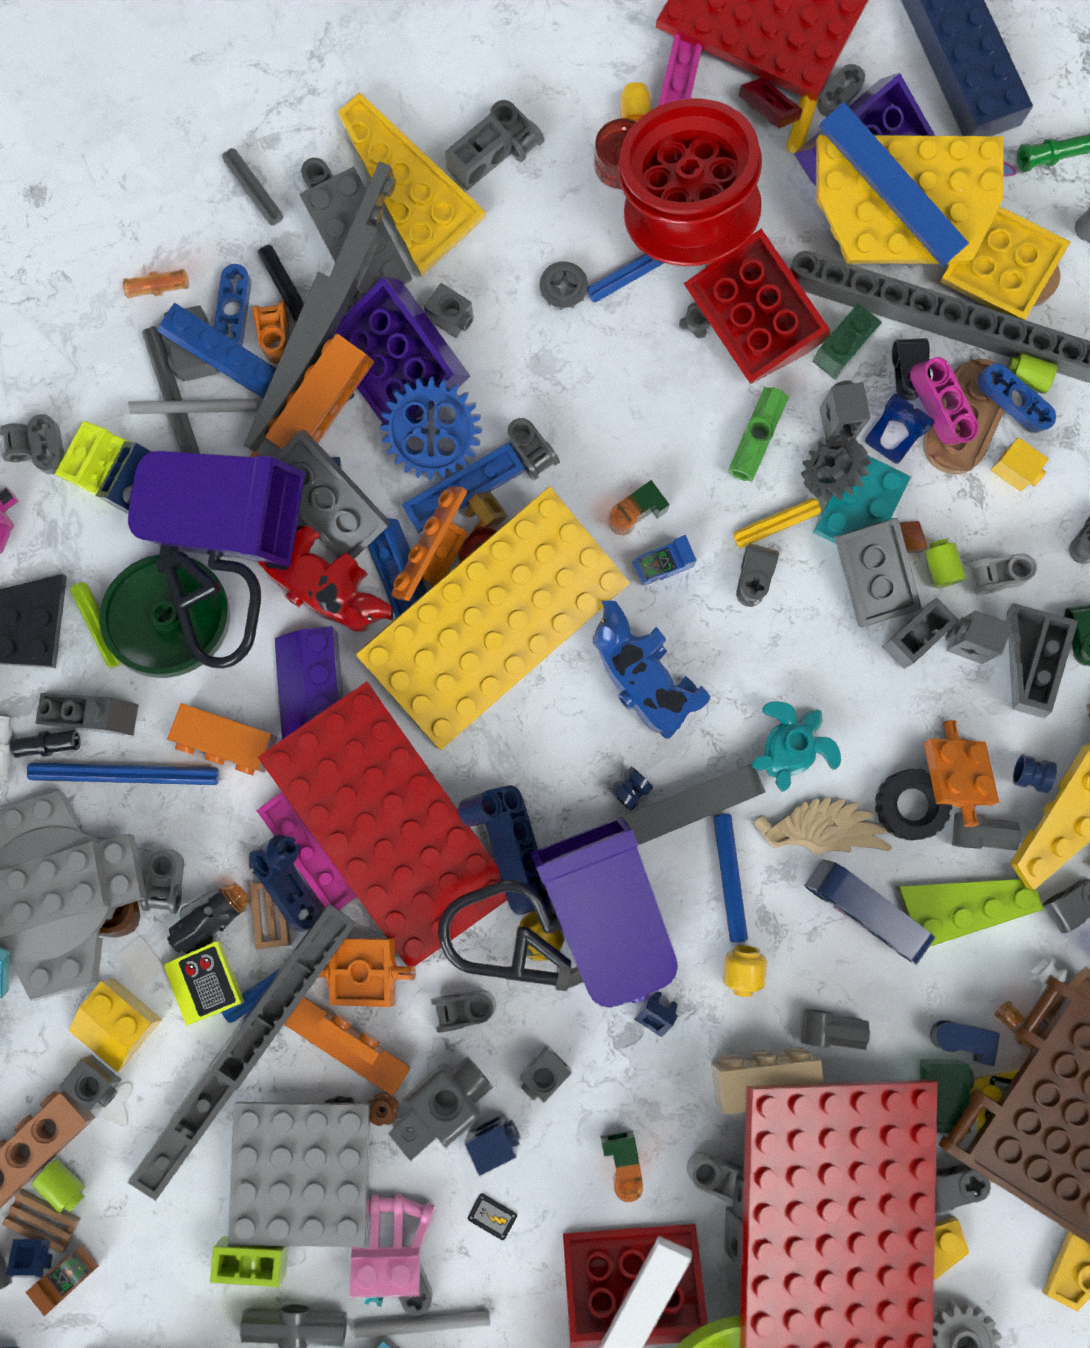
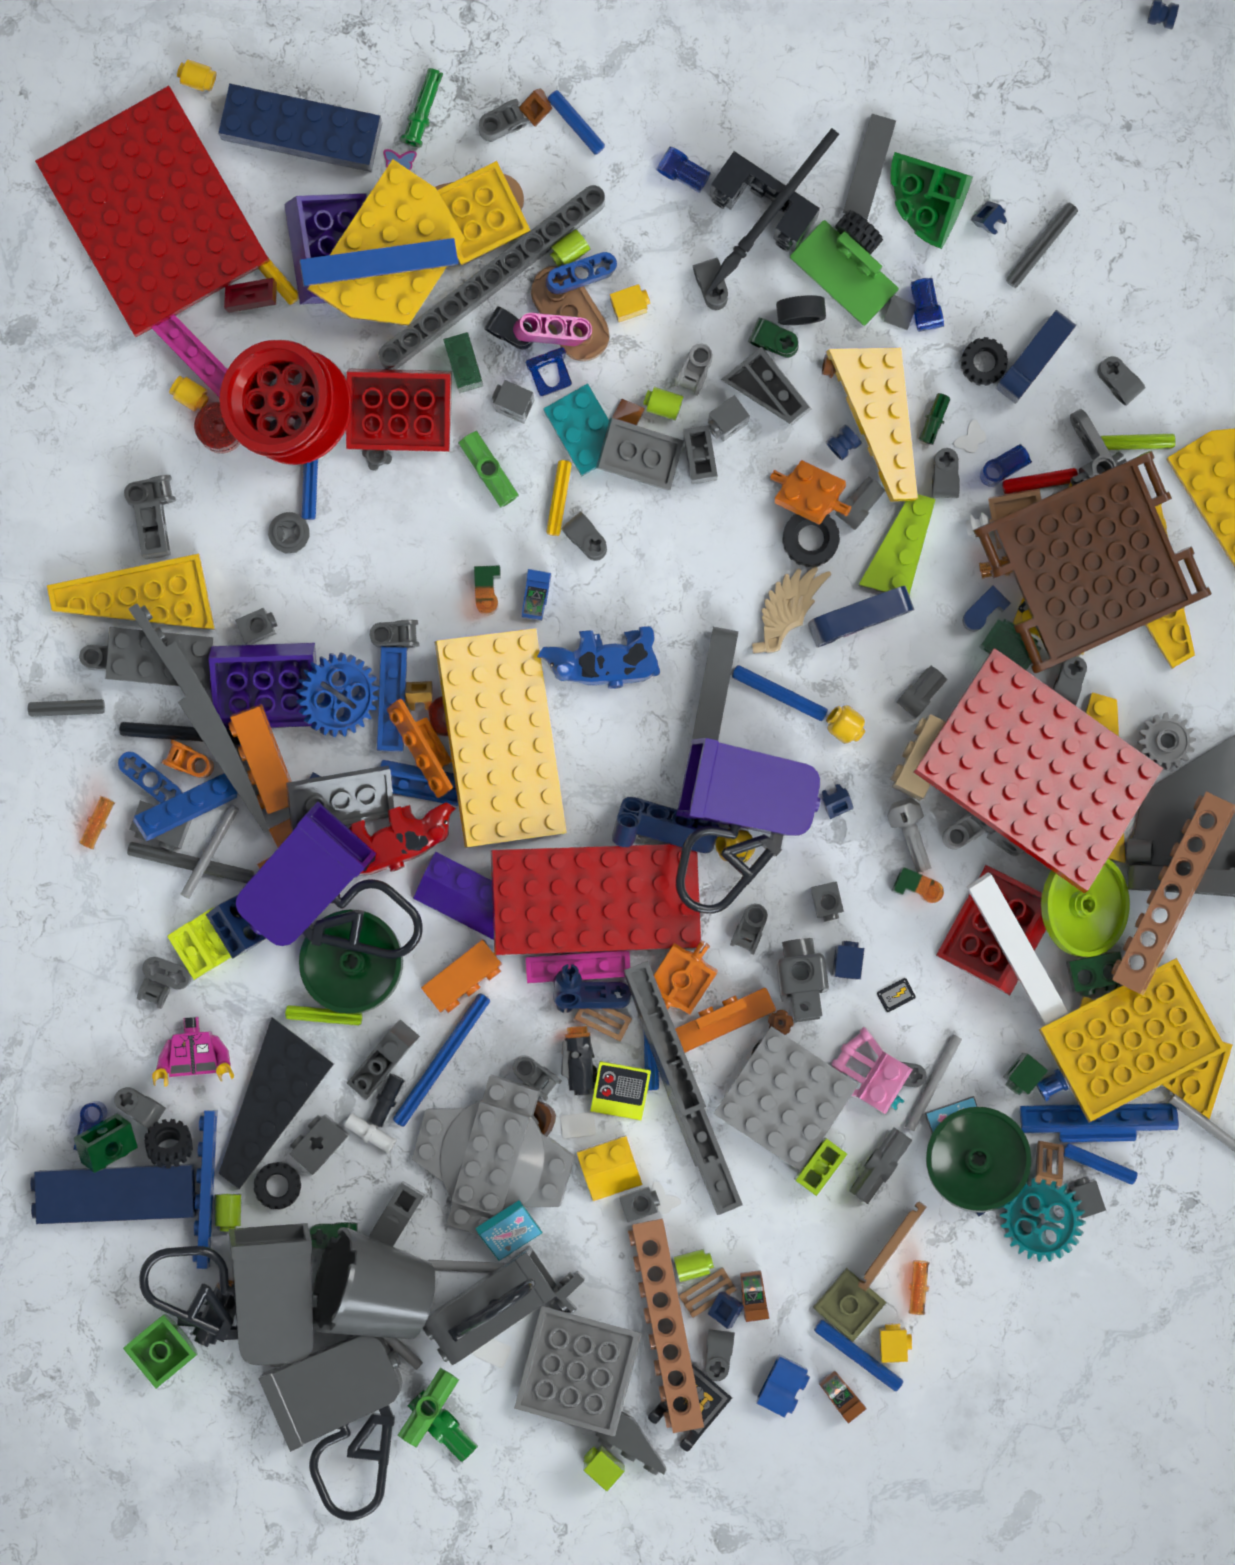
camera: 55 degrees left, 5 degrees up
(625, 794) = (675, 726): dark blue wheel -> none
(679, 1116) = (910, 830): none -> light grey piece
(792, 745) = (719, 591): teal animal -> none
(835, 86) = (278, 234): dark grey beam -> none
(835, 468) = (547, 433): dark grey gear -> none

